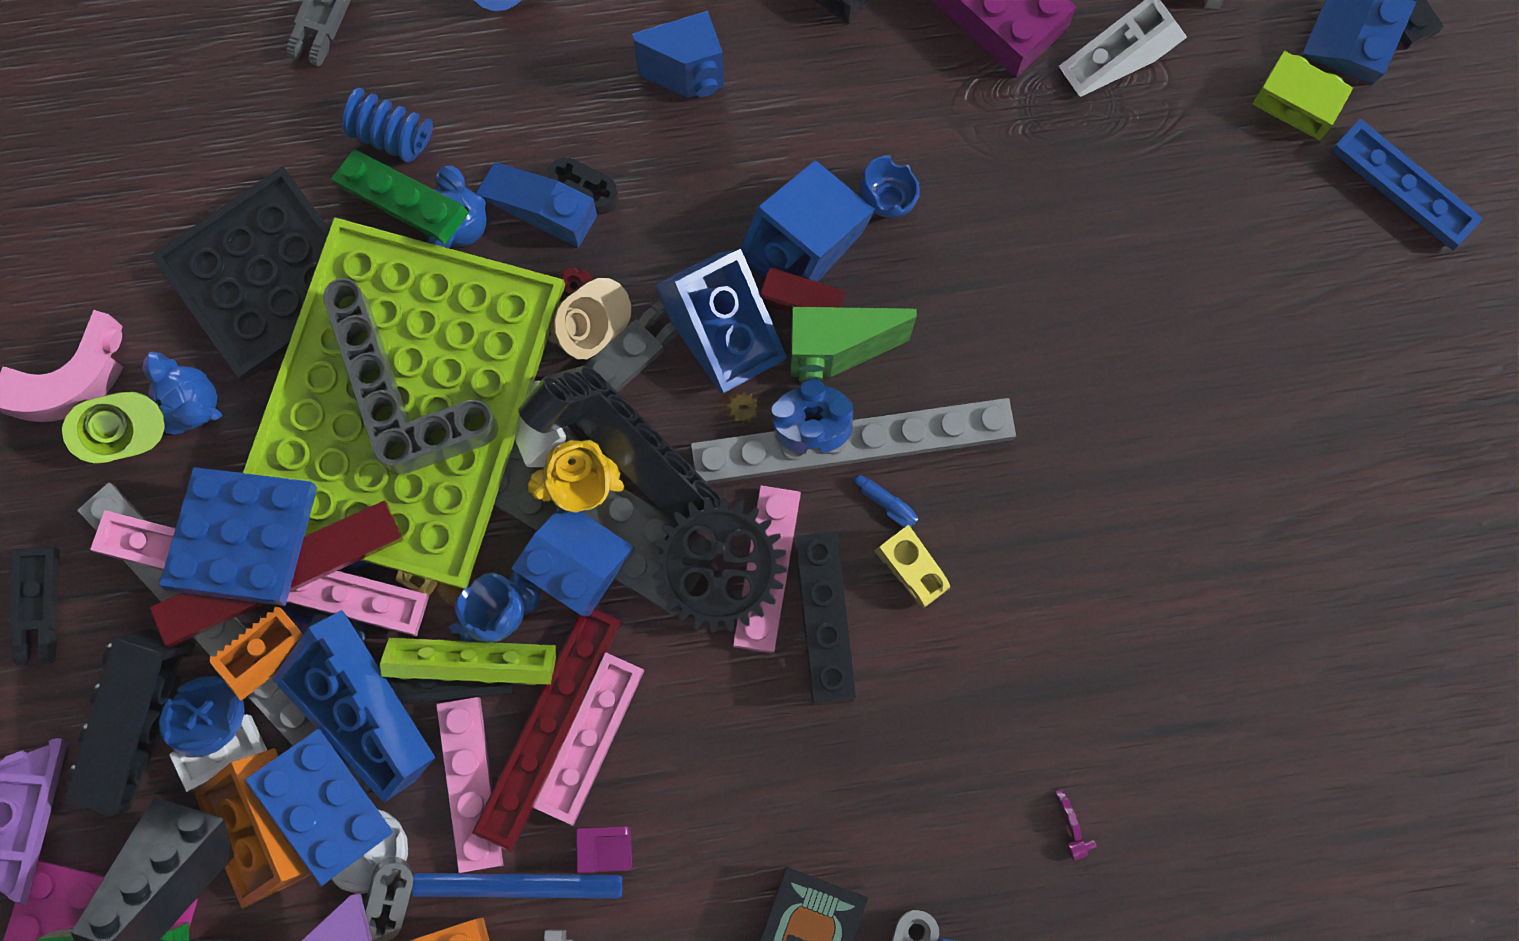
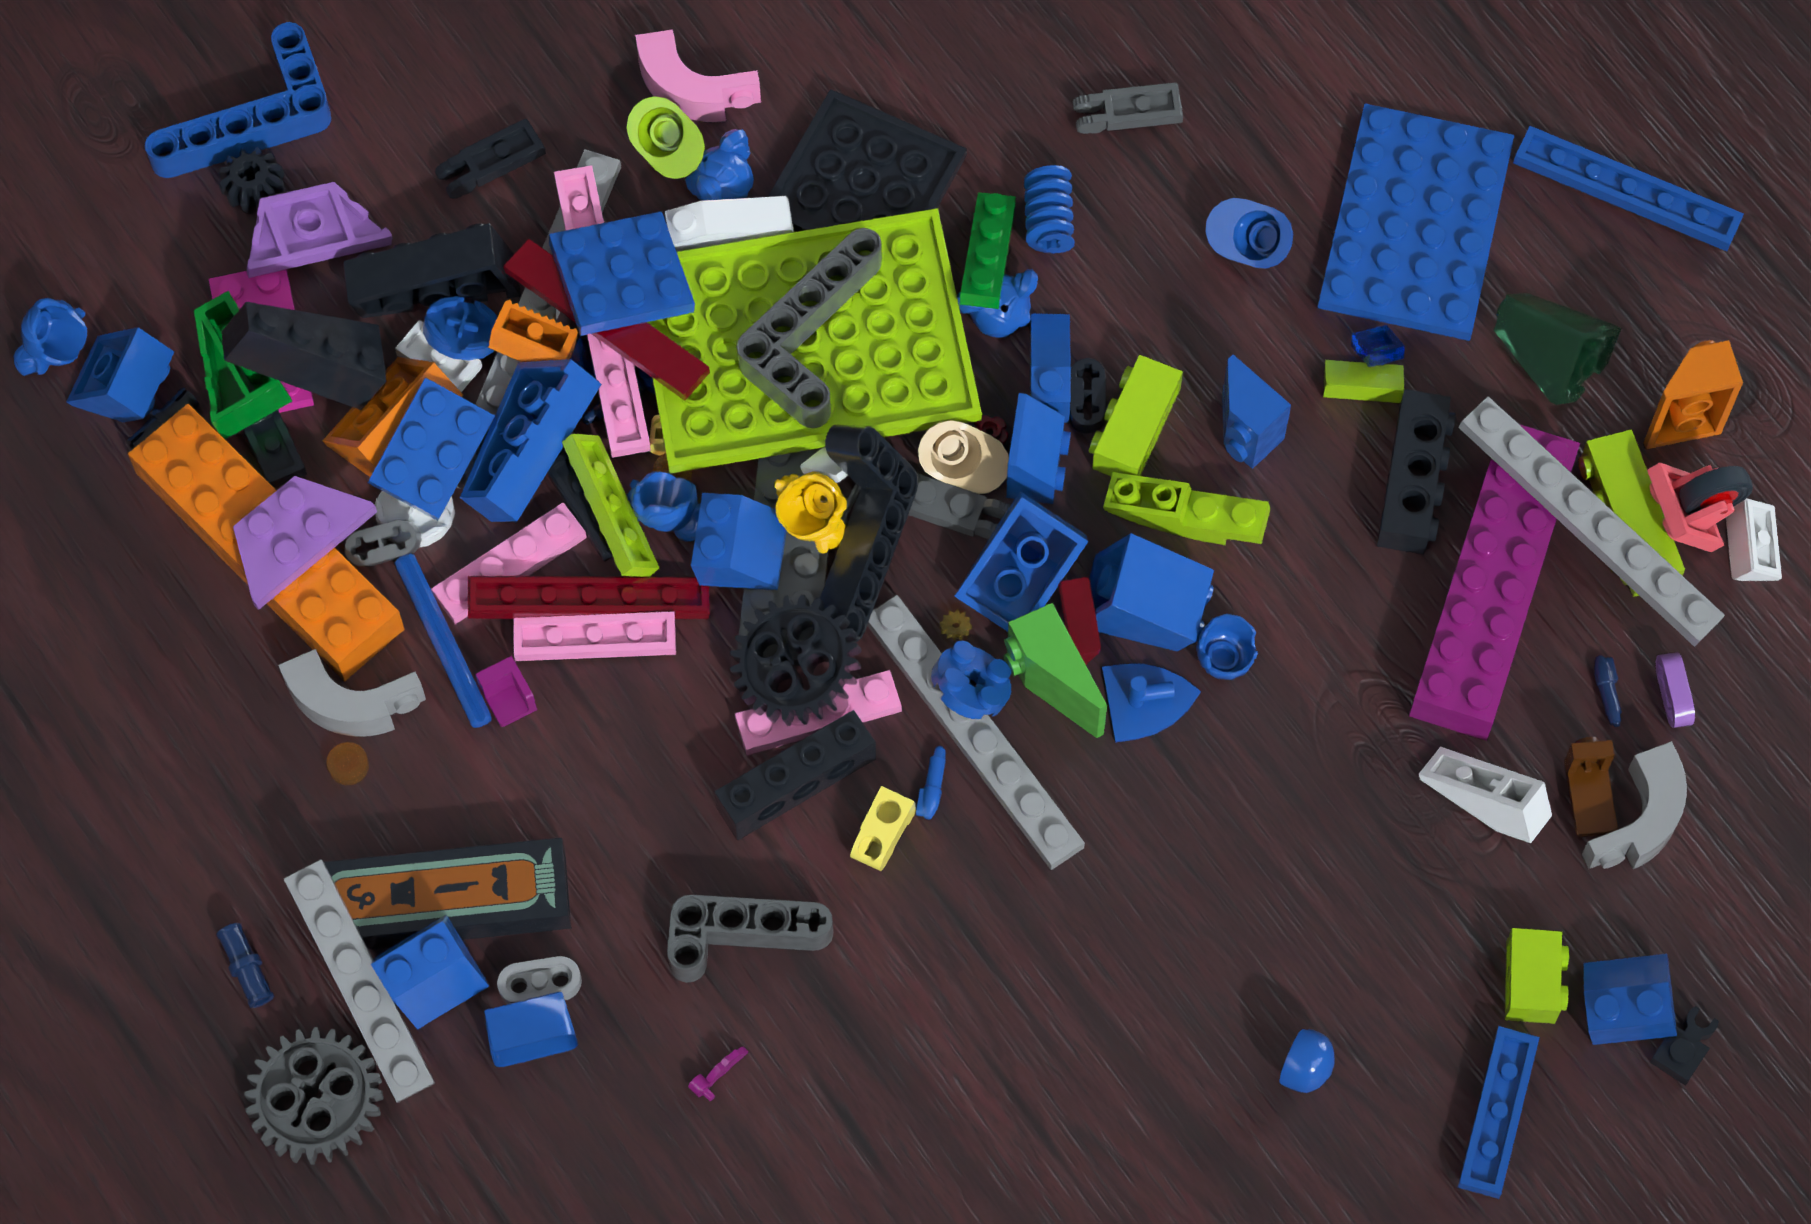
camera: 65 degrees right, 10 degrees down
(237, 412) = (728, 221): none -> white slope
(618, 253) = (1036, 451): none -> blue slope
(631, 155) = (1136, 417): none -> lime brick
(742, 156) = (1184, 512): none -> lime slope
(894, 278) = (1145, 699): none -> blue shield
(955, 732) = (748, 934): none -> dark grey beam
(1304, 310) = (1308, 1062): none -> blue hair

